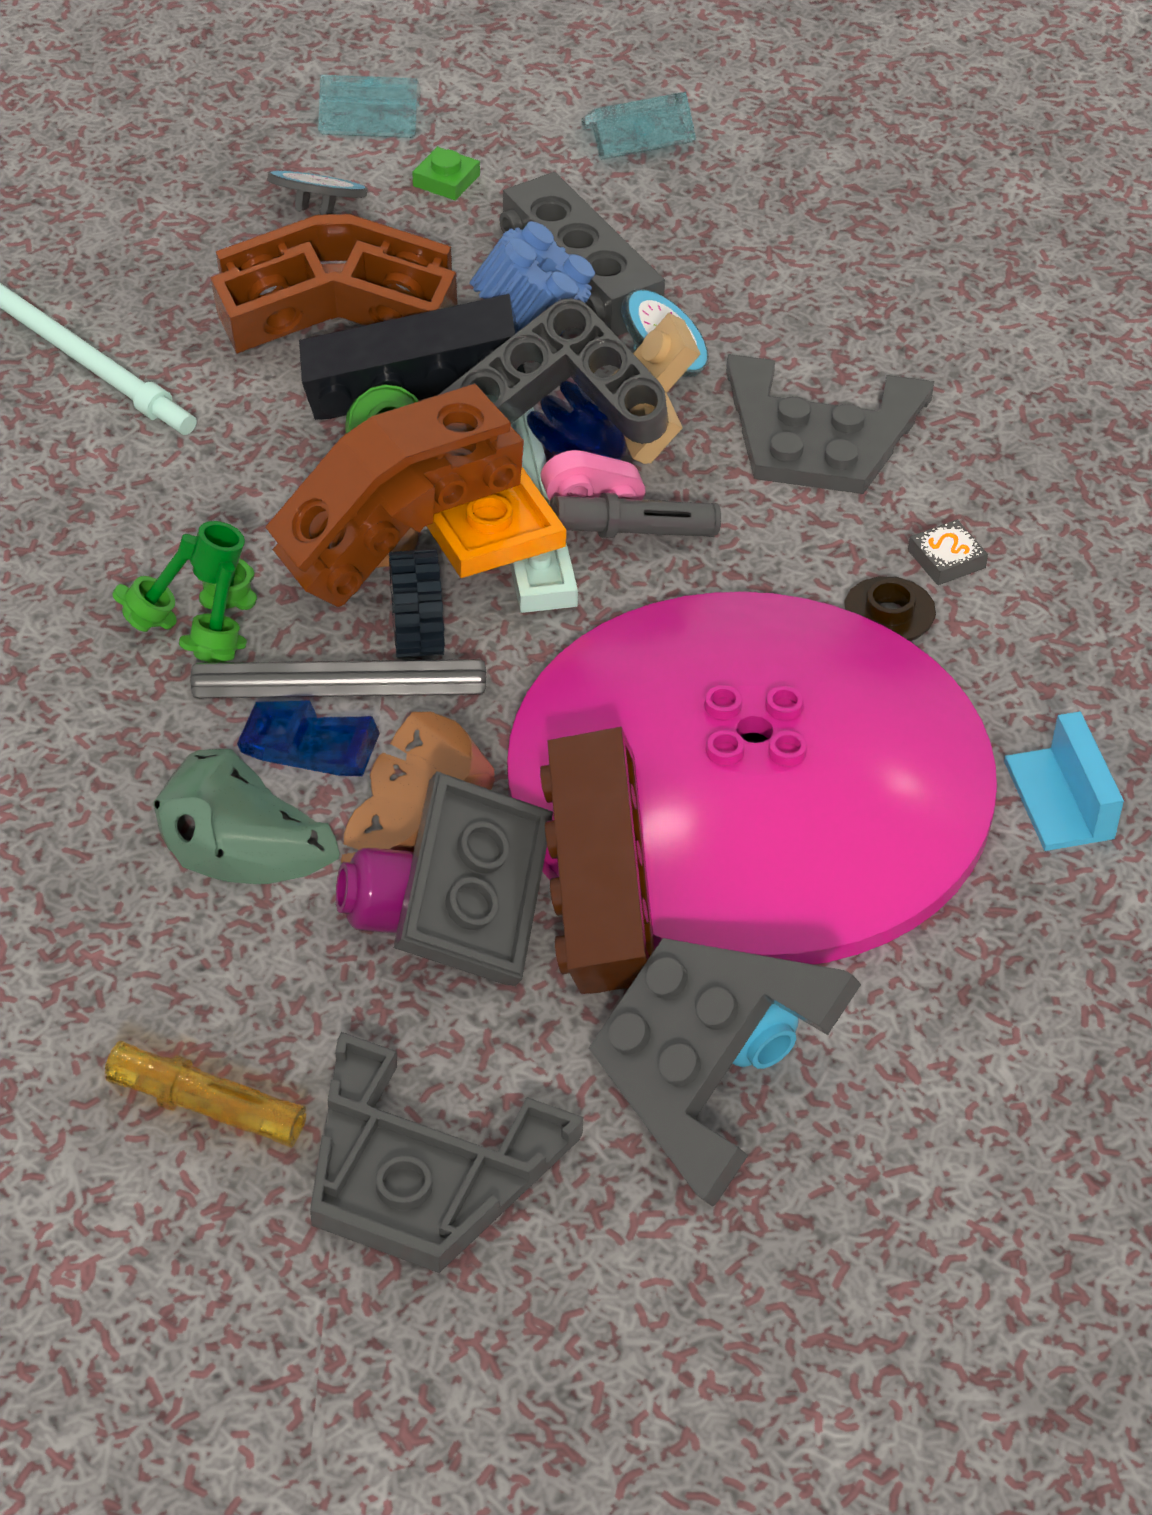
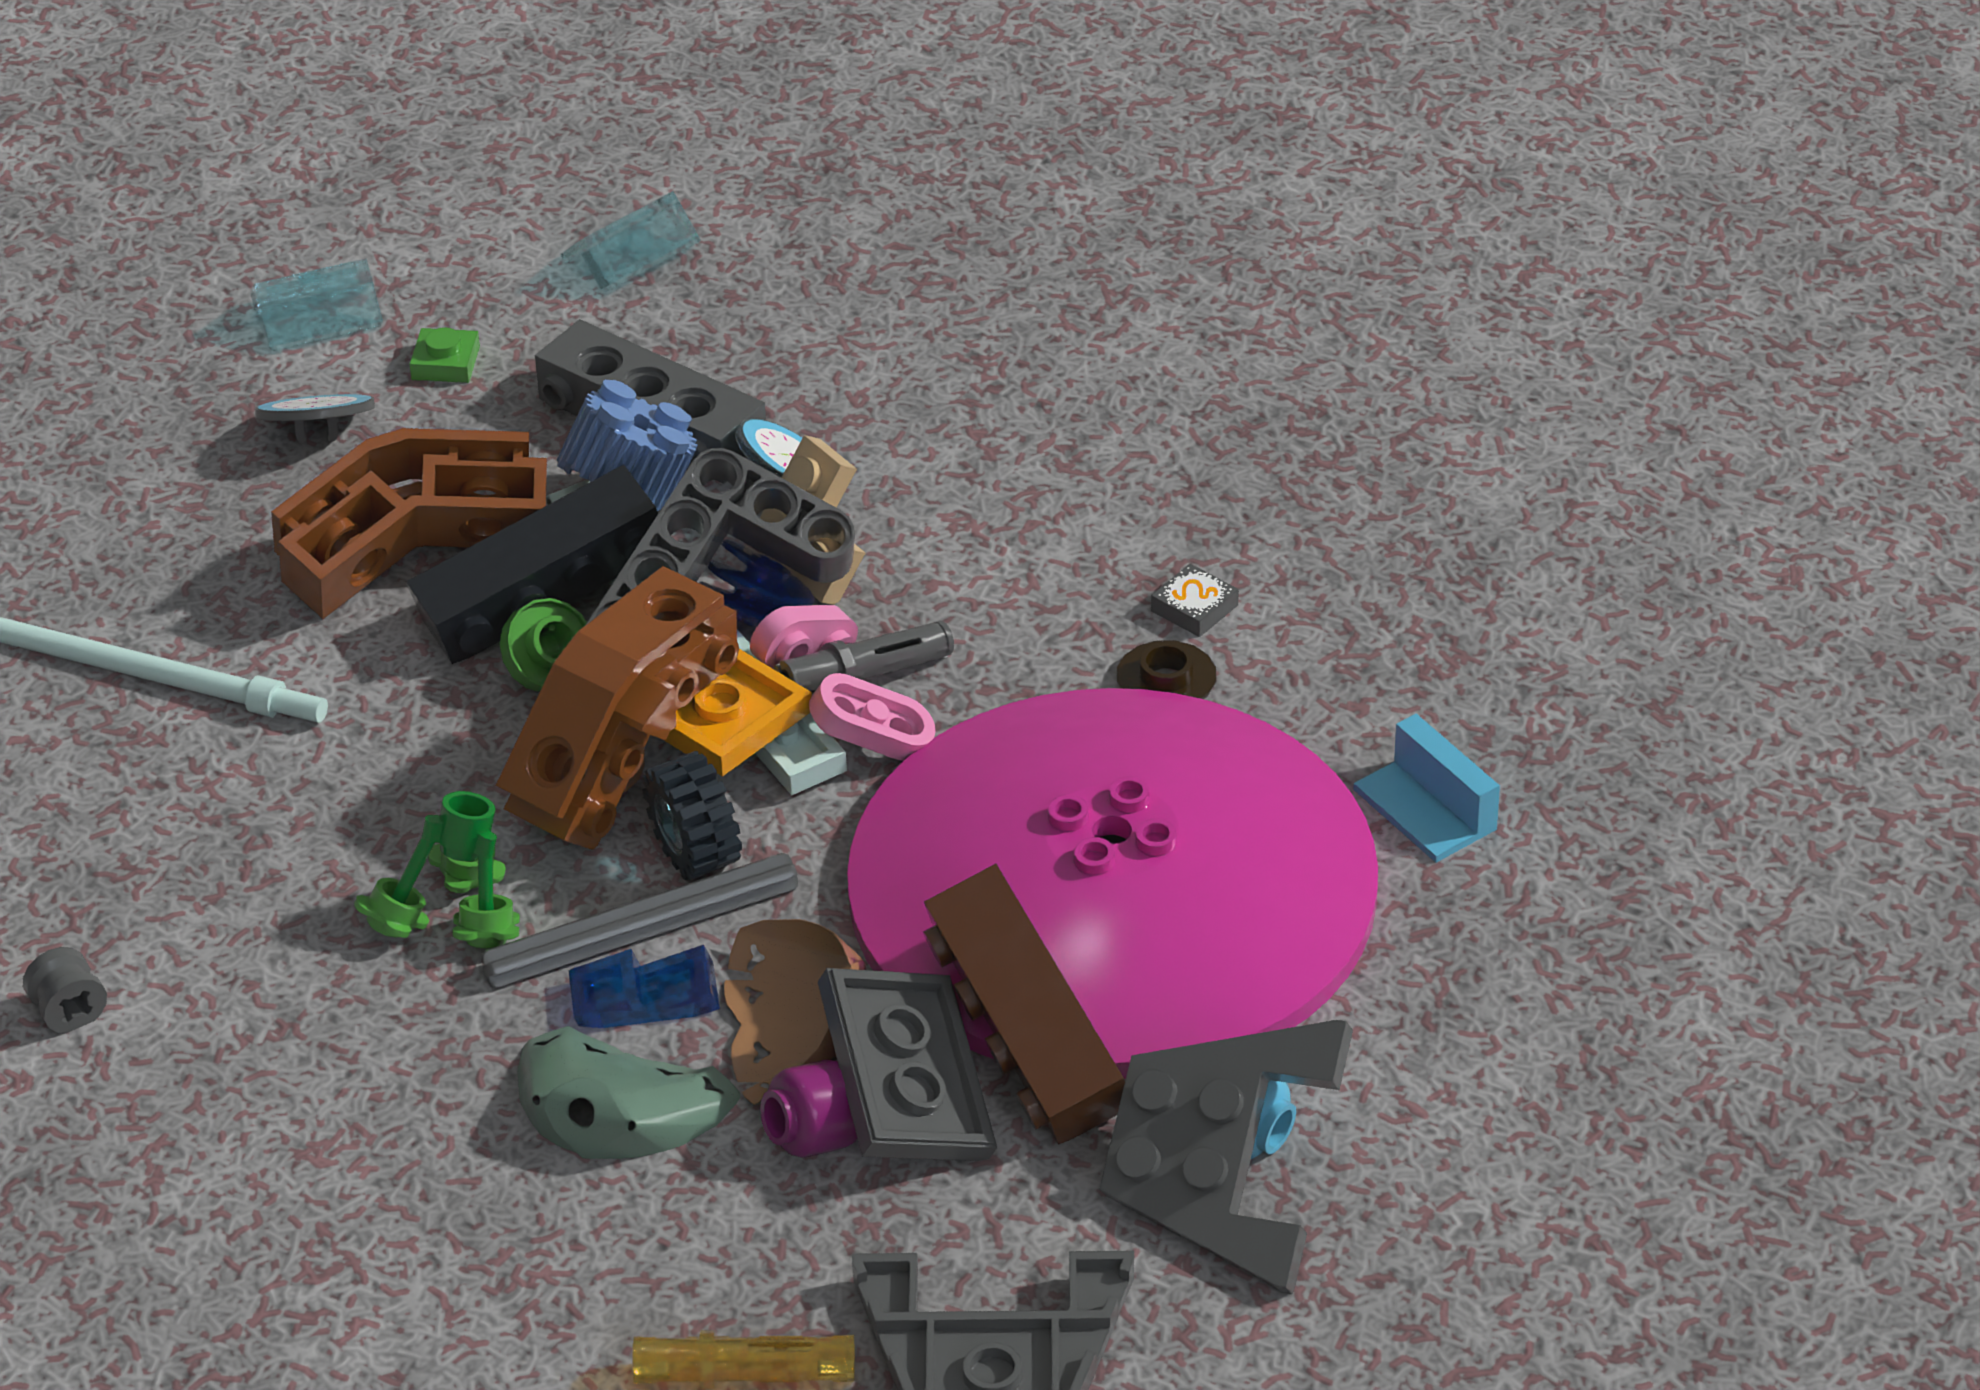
camera: 20 degrees left, 5 degrees down
(612, 566) = (871, 716): none -> bright pink plate
(816, 441) = (998, 527): dark grey wing -> none

